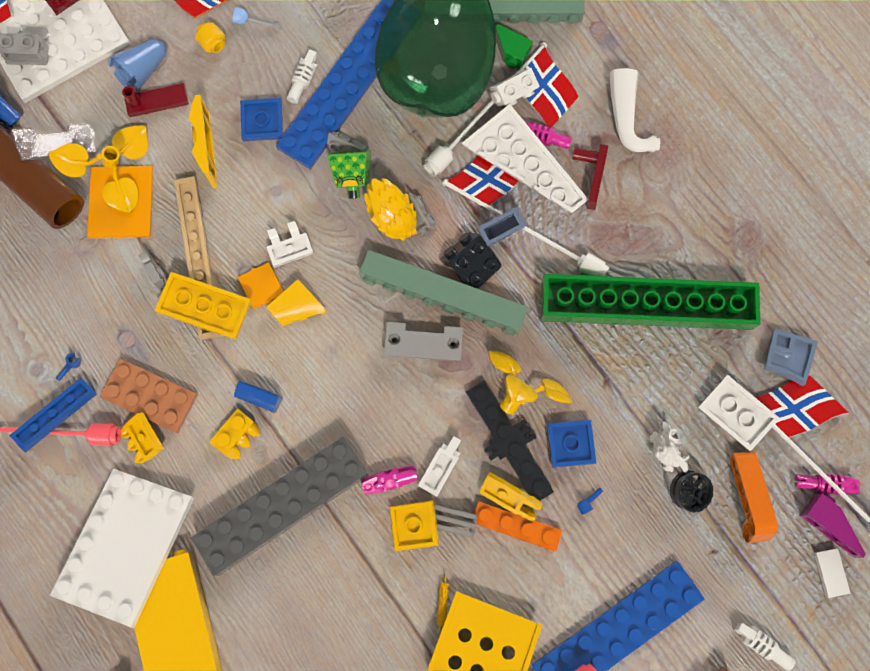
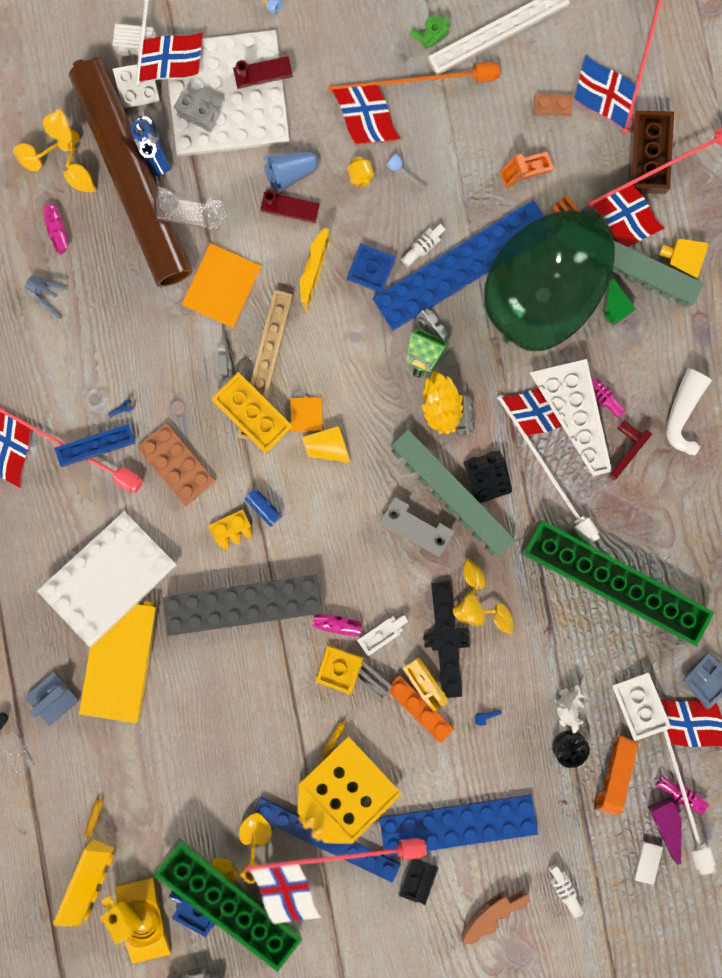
camera: 25 degrees right, 10 degrees up
(122, 193) = (225, 280): yellow plant -> none
(142, 438) = (156, 497): yellow plate -> none
(288, 250) = (343, 396): white plate -> none
(503, 226) = (528, 462): sand blue brick -> none
(514, 87) = (598, 344): white brick -> none
(549, 101) = (624, 353): flag -> none
(571, 443) = (495, 665): blue plate -> none

